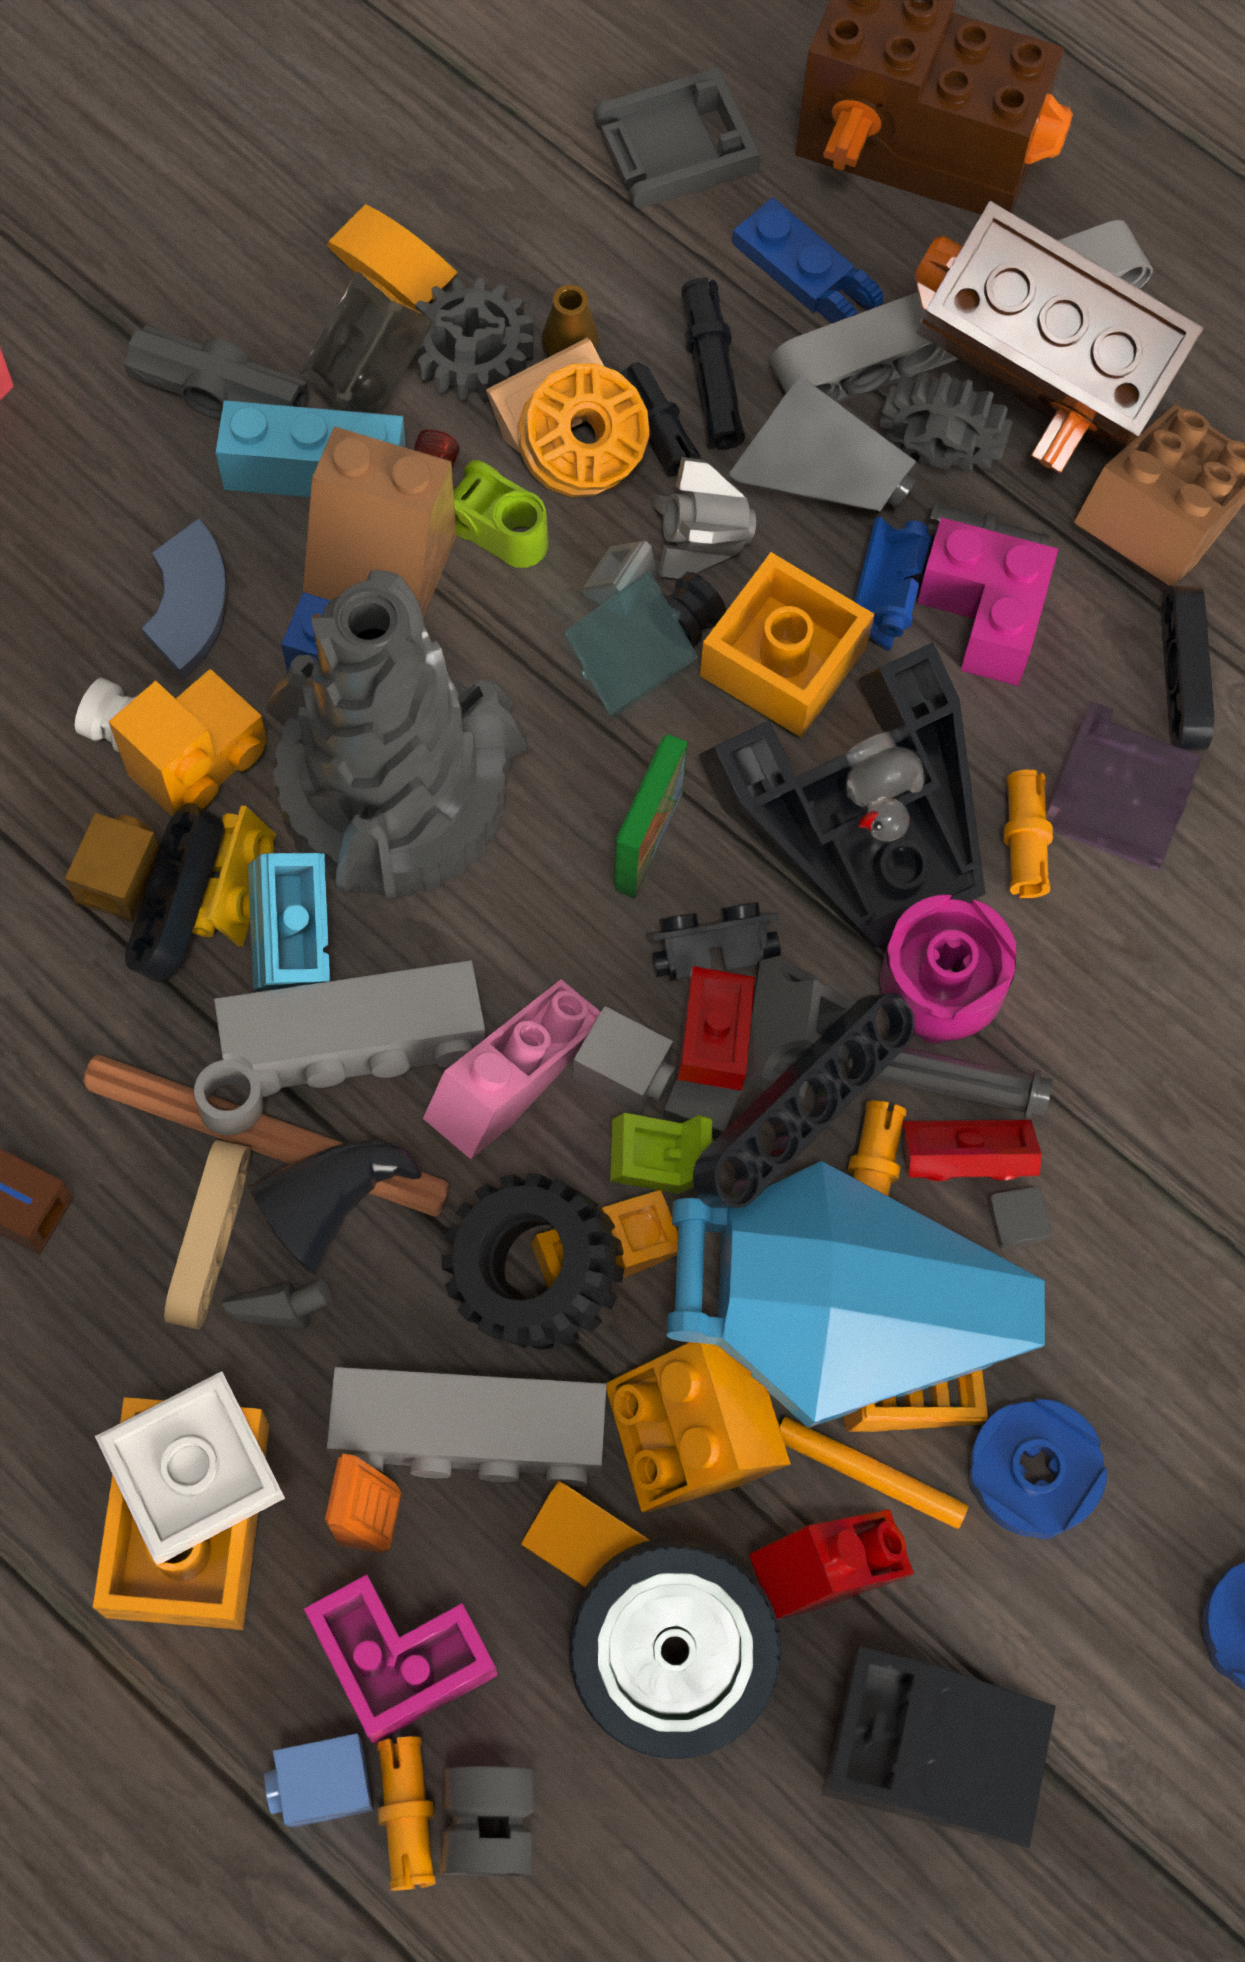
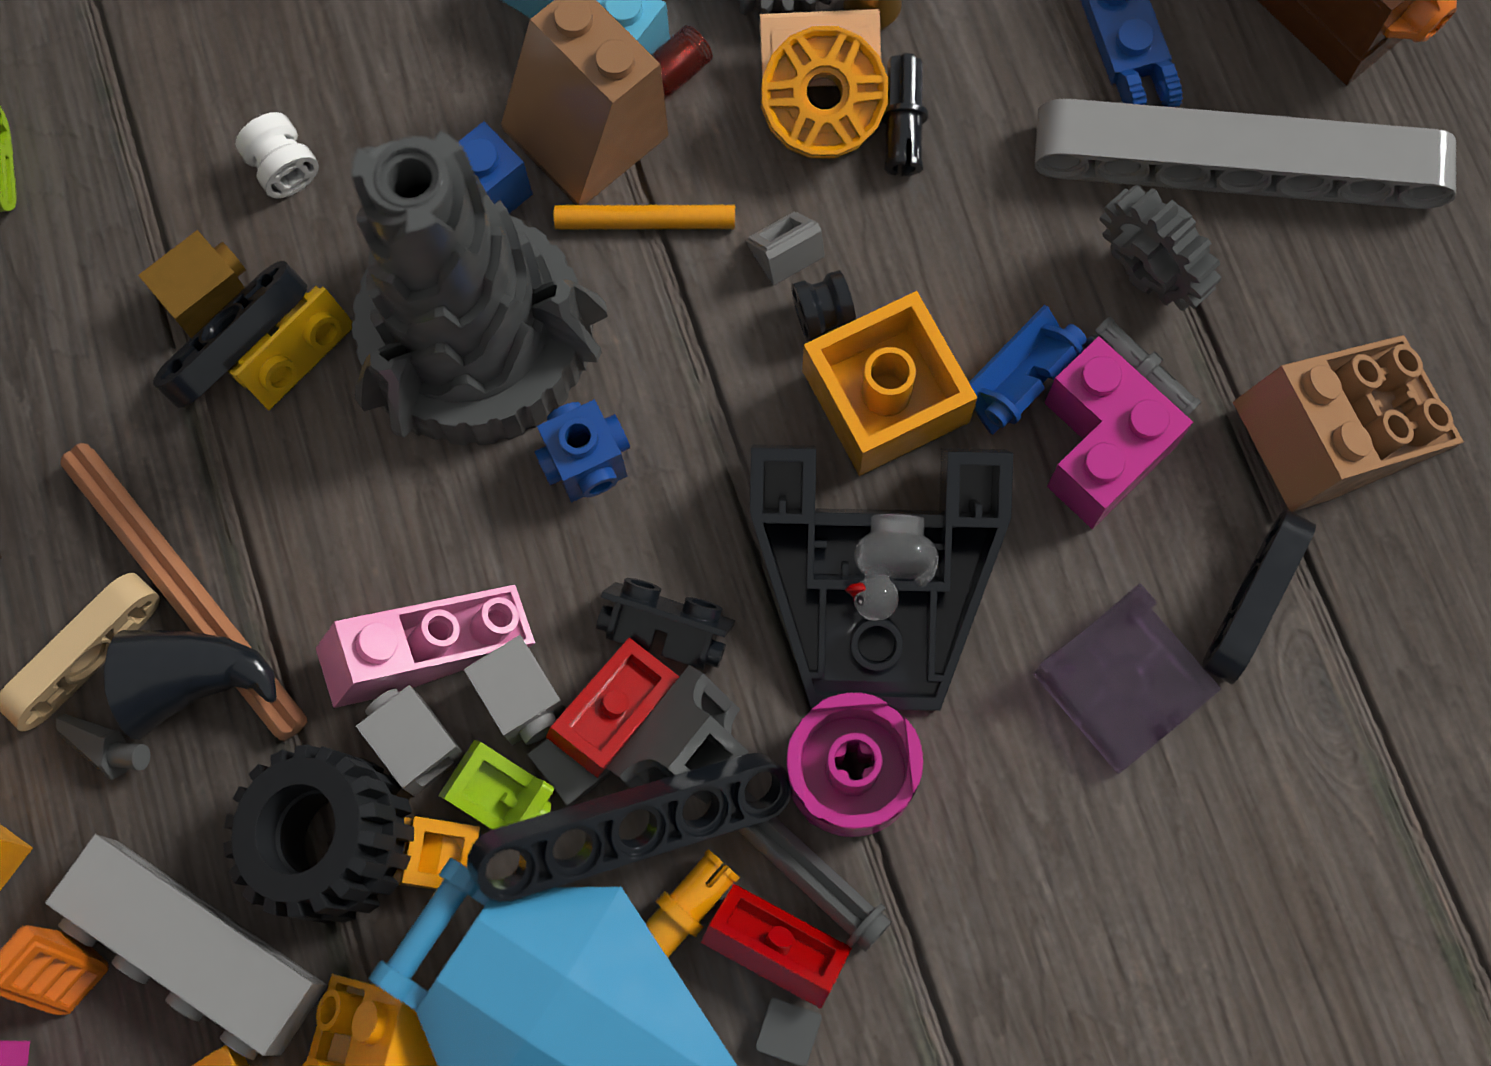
camera: 35 degrees right, 5 degrees up
(188, 743) = (299, 208): light orange brick -> none
(191, 601) = (407, 80): sand blue tile -> none
(288, 920) = (296, 413): medium azure brick -> none
(338, 1032) = (284, 531): light grey hinge -> none
(493, 506) = (705, 126): lime piece -> none
(497, 606) = (644, 216): none -> light orange bar
(555, 1144) = (409, 739): none -> light grey brick
(557, 831) = (585, 469): none -> blue brick
(631, 644) = (752, 311): clear light blue piece -> none
(649, 815) = (665, 479): green tile -> none
(705, 521) = (885, 229): light grey brick -> none
(709, 342) = (992, 66): black pin -> none
(824, 454) = (1030, 222): dark grey slope -> none
(1028, 834) = (1011, 676): light orange pin -> none
(1052, 331) = (1302, 208): piece -> none

